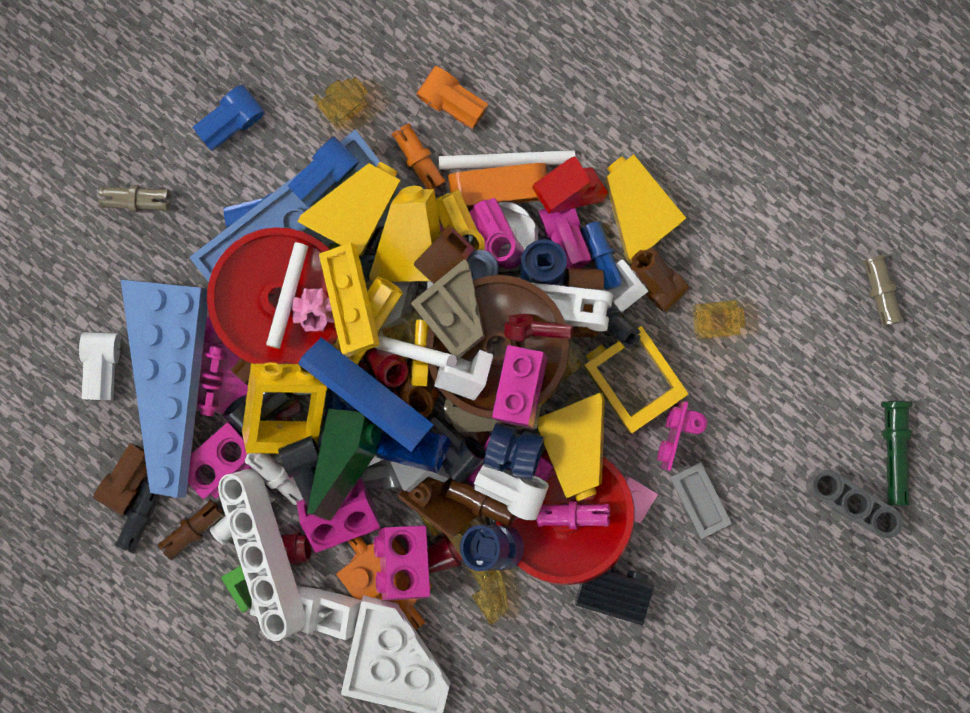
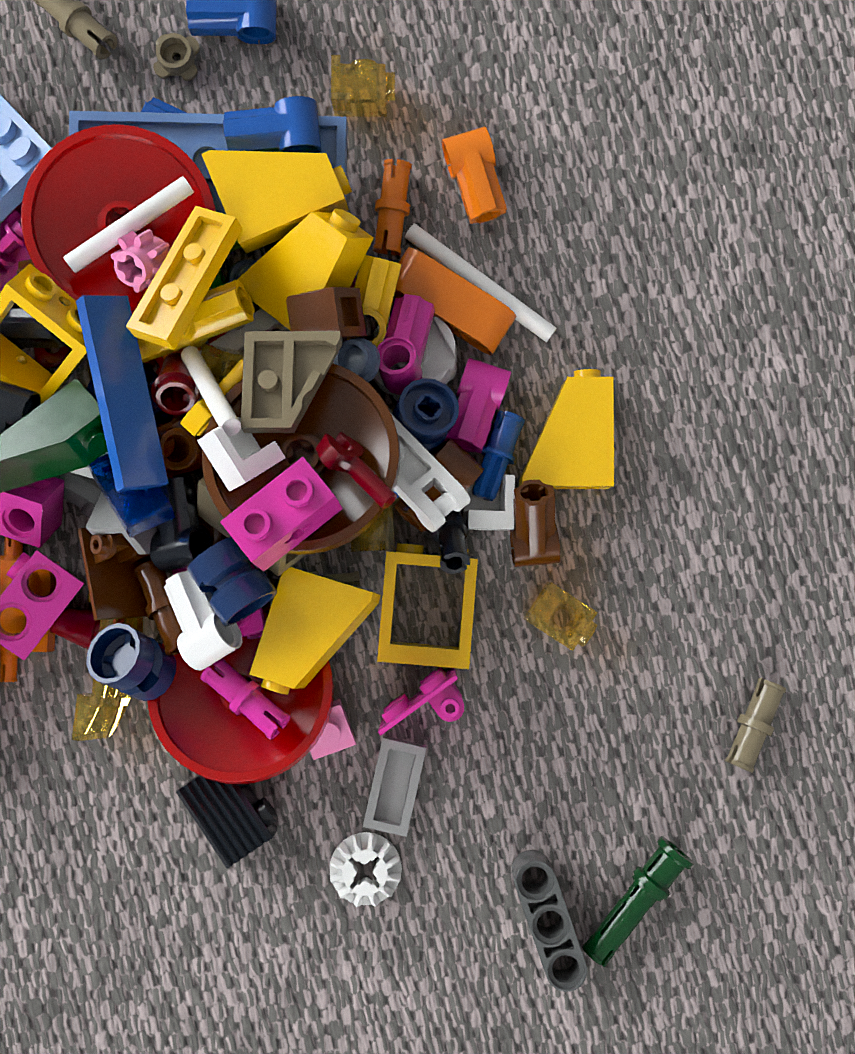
camera: 35 degrees right, 0 degrees up
(204, 169) = (170, 45): none -> dark tan plate
(569, 187) = (519, 357): red slope -> none
(712, 551) = (363, 848): none -> white gear

